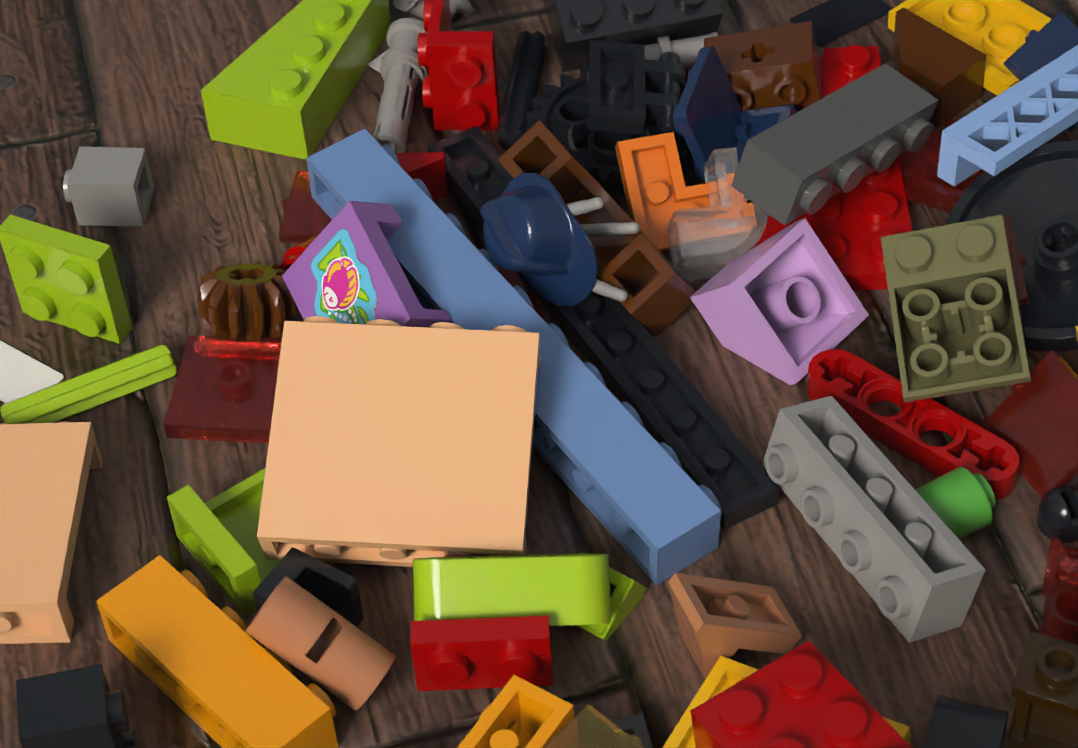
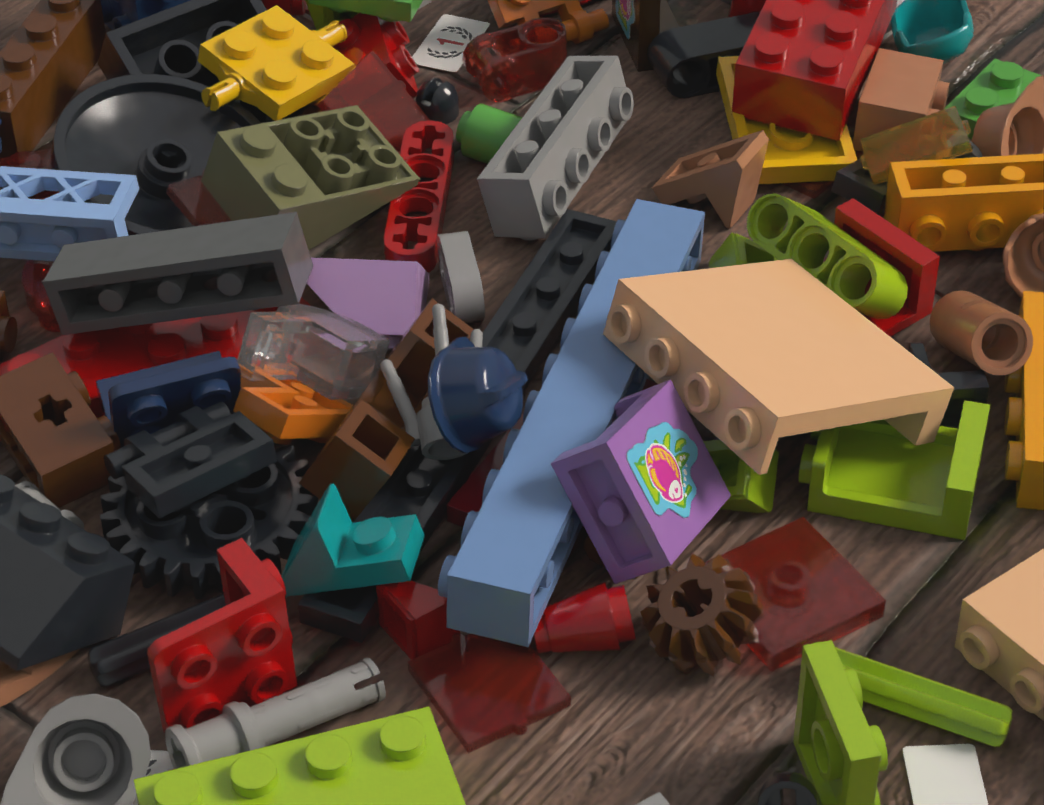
camera: 130 degrees left, 5 degrees down
(471, 144) = (347, 555): none -> teal slope
(753, 376) = (461, 276): none -> light grey beam

